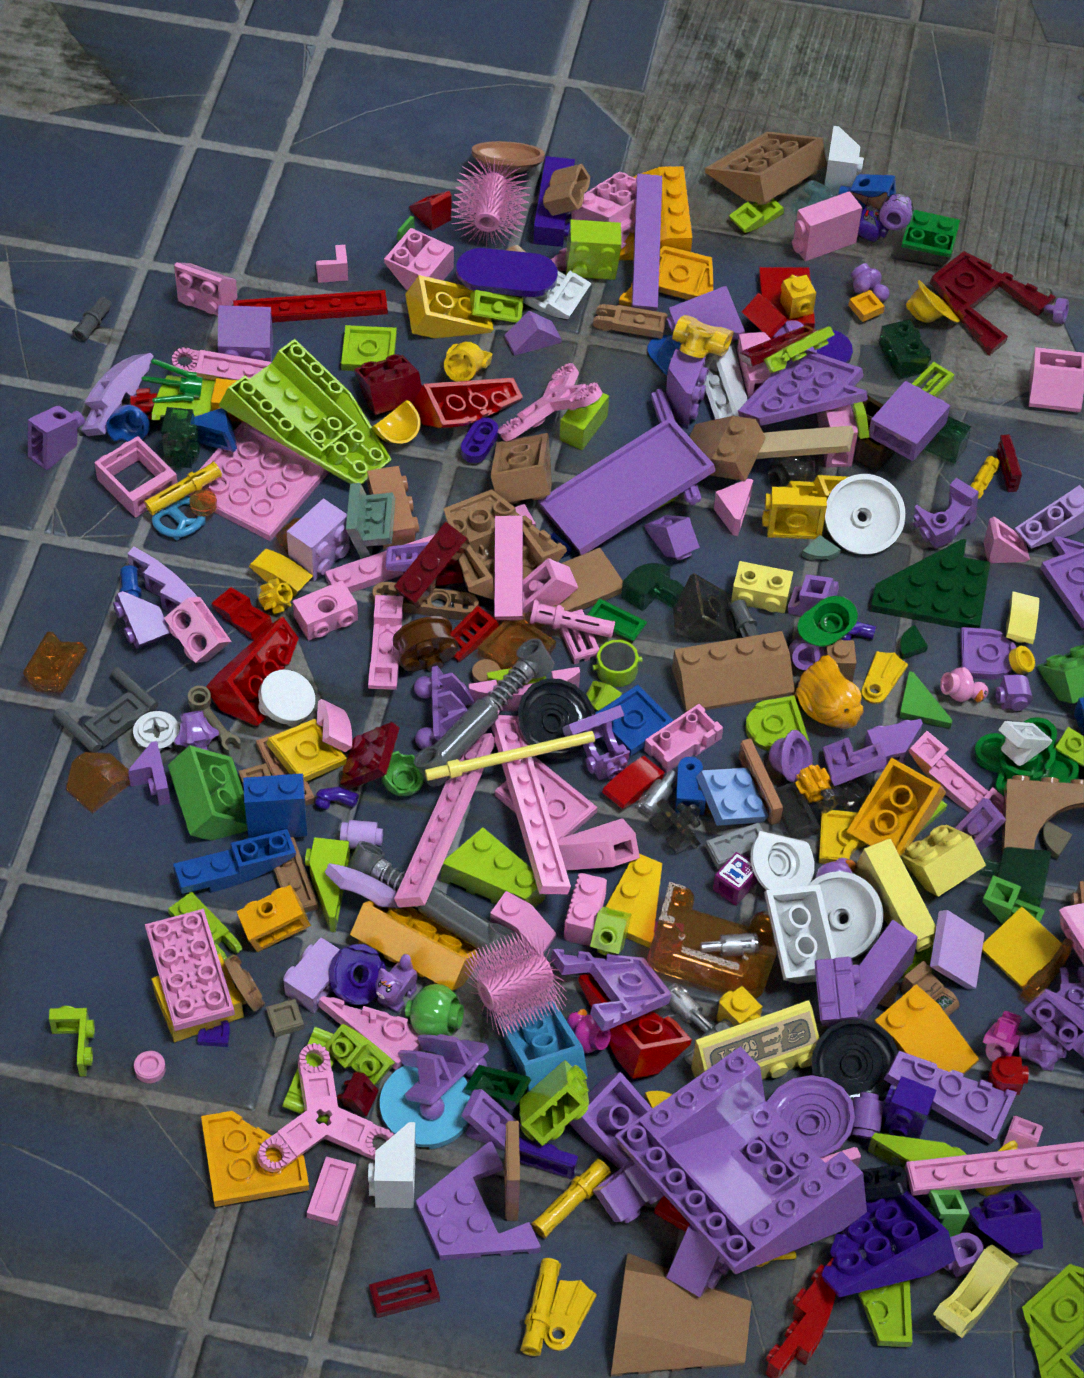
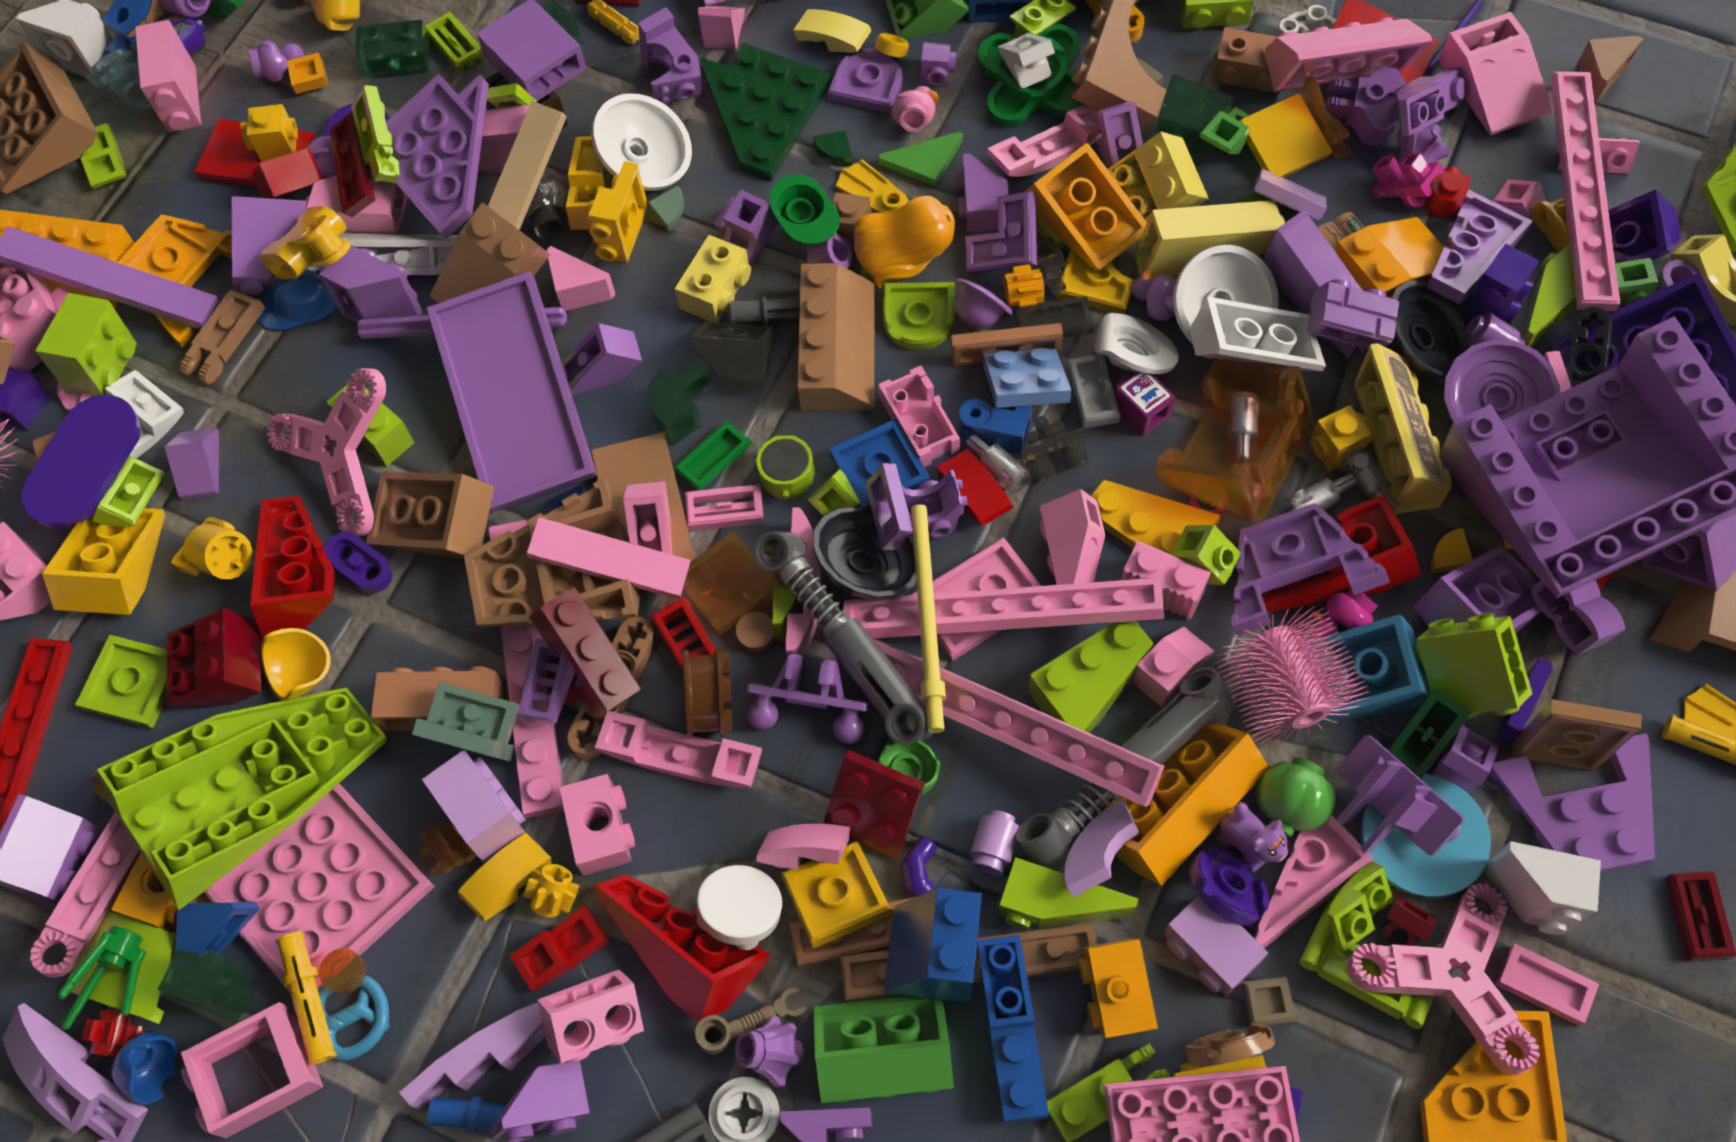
camera: 70 degrees left, 10 degrees up
(553, 616) = (702, 516): bright pink pin -> none
(580, 1189) = (1544, 646): yellow pin -> none

